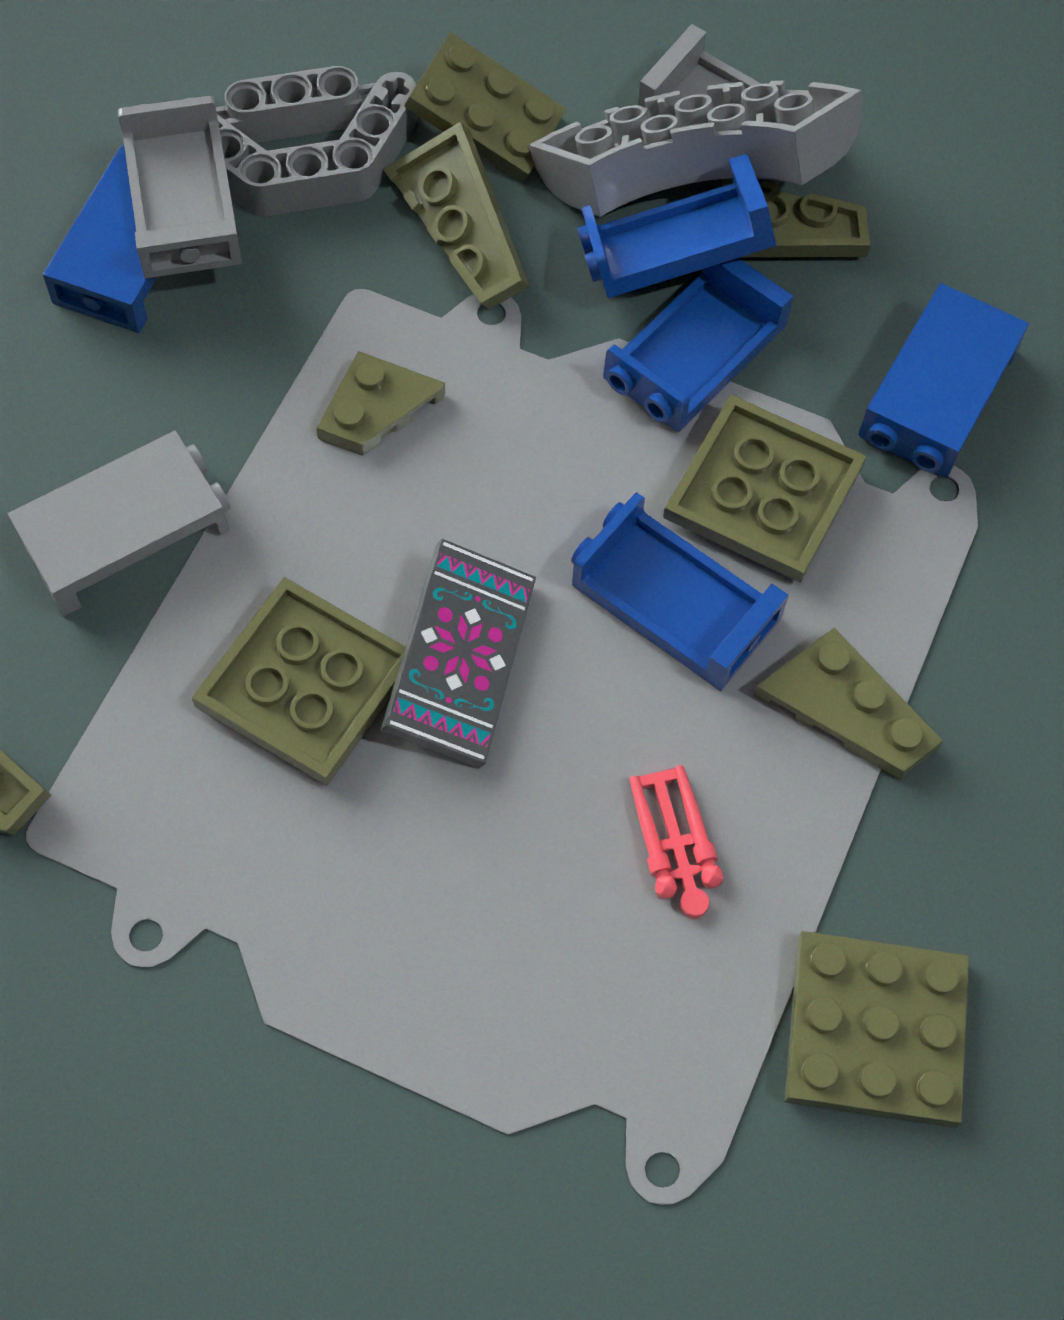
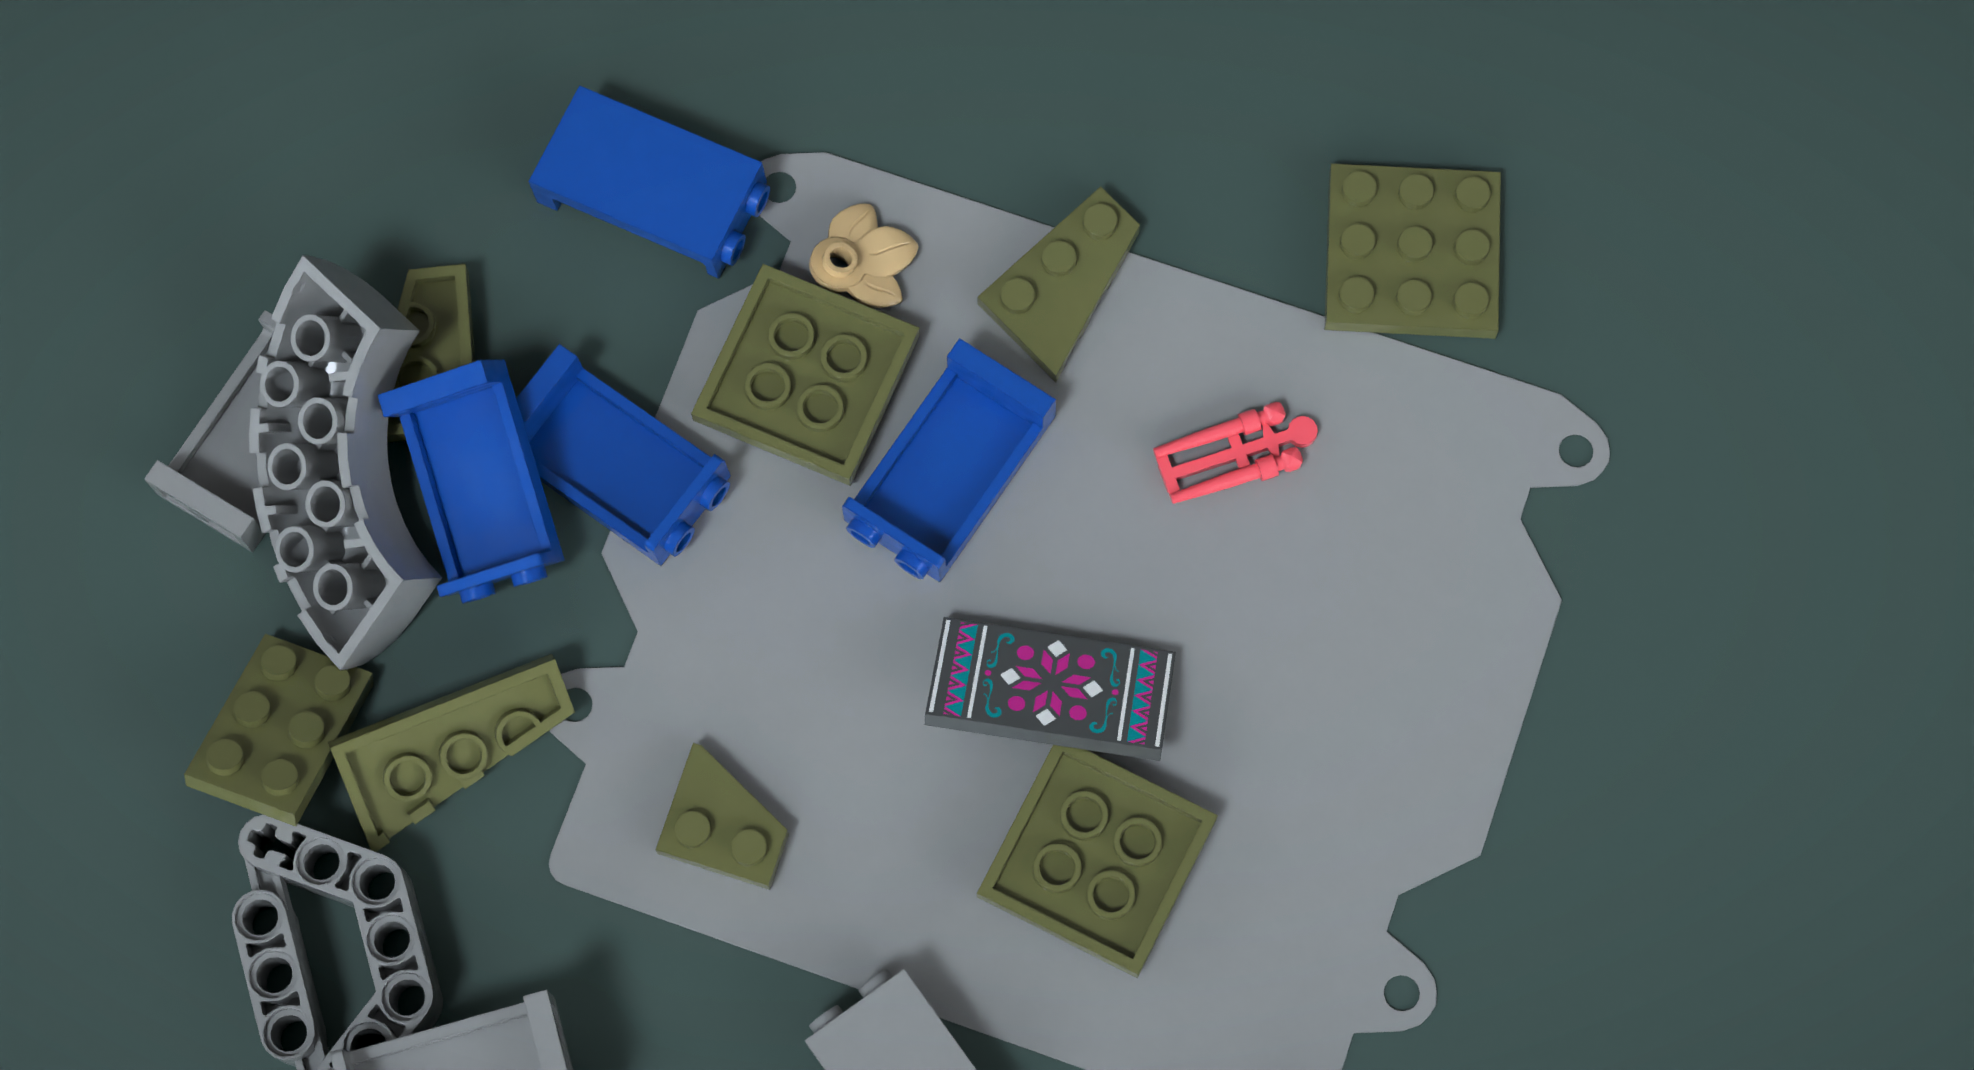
camera: 90 degrees left, 10 degrees up
(875, 547) = (871, 255): none -> tan plate

